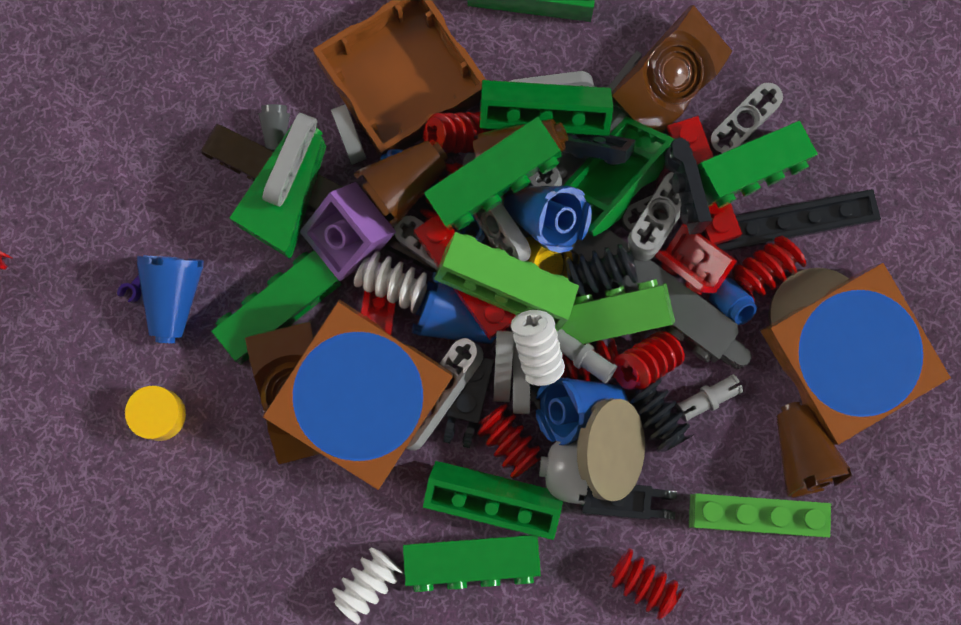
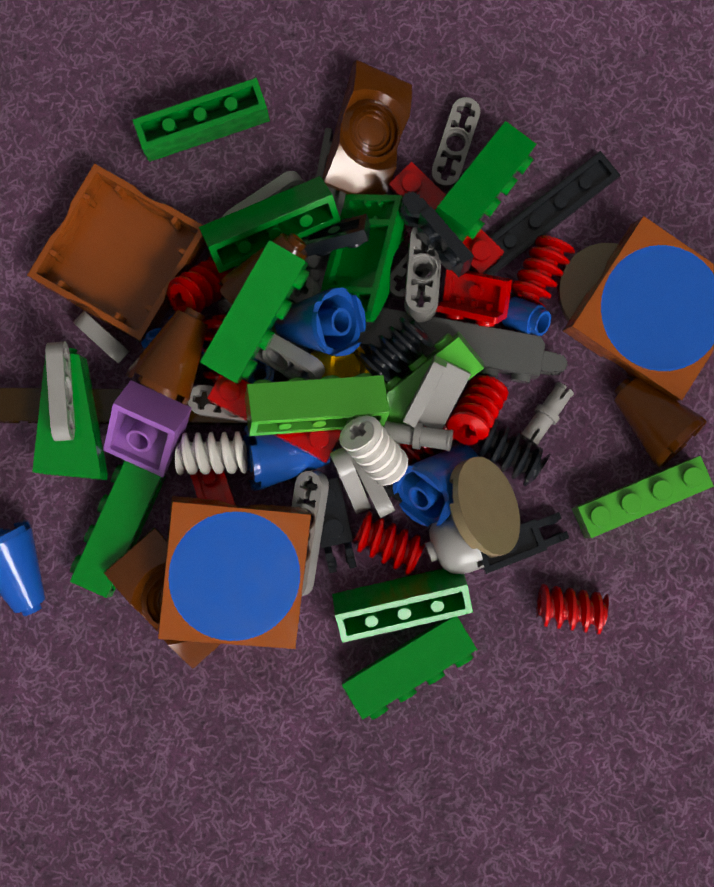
camera: 25 degrees left, 5 degrees up
(155, 413) = (57, 680): yellow piece -> none
(274, 124) = (28, 362): dark grey cone -> none
(365, 585) = (327, 735): white piece -> none
(618, 327) = (436, 394): none -> light grey panel

